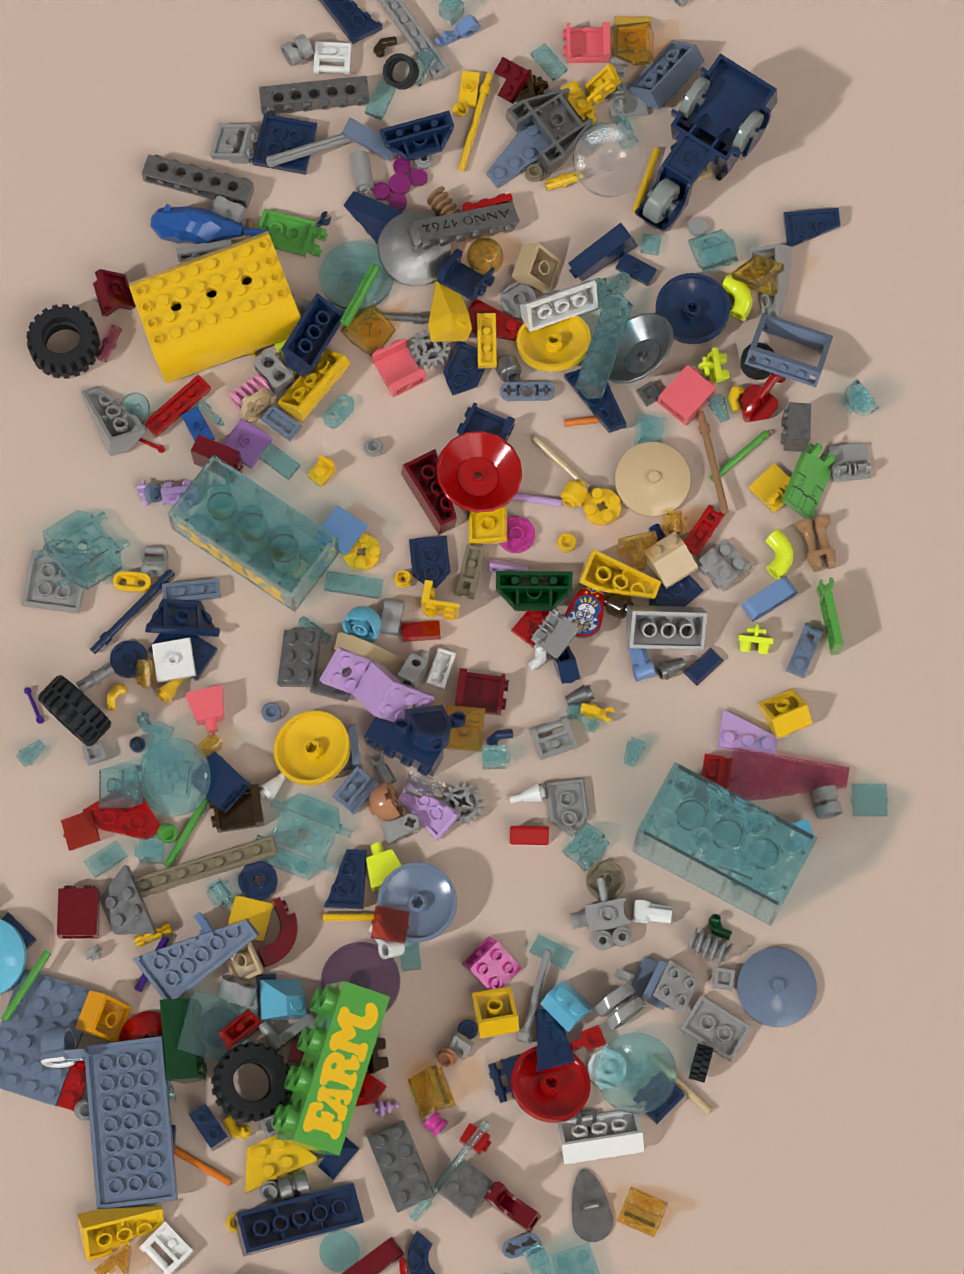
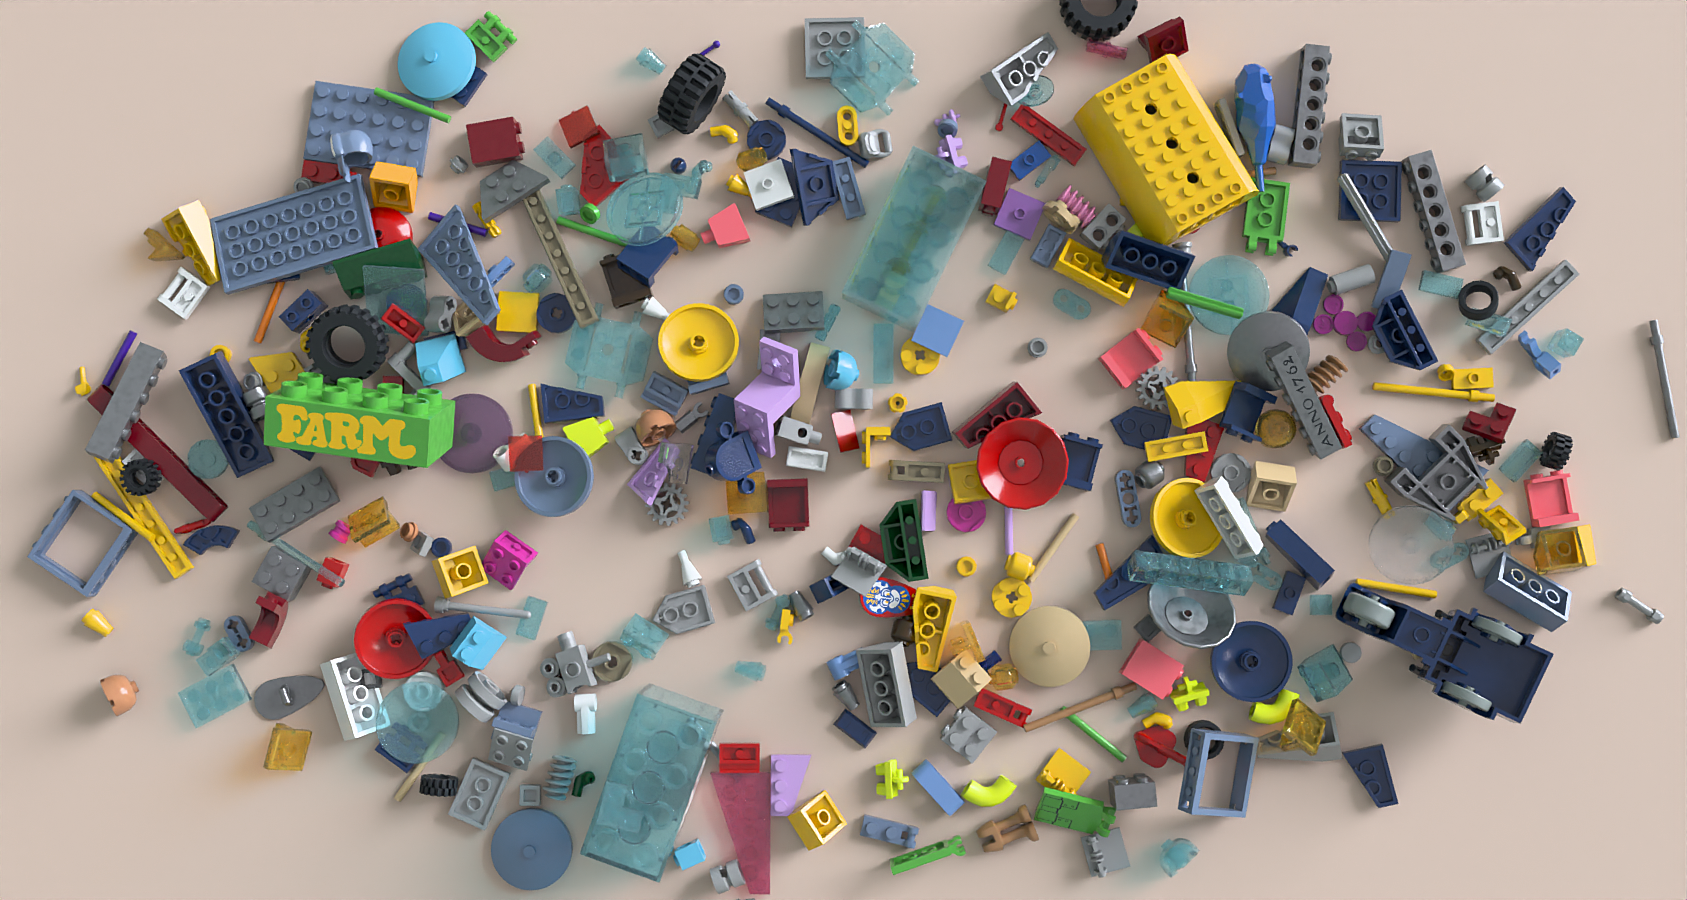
camera: 85 degrees right, 15 degrees up
(381, 1109) = (351, 480): lavender hair -> none
(529, 835) = (646, 577): red slope -> none
(545, 30) = (1556, 451): none -> black tyre

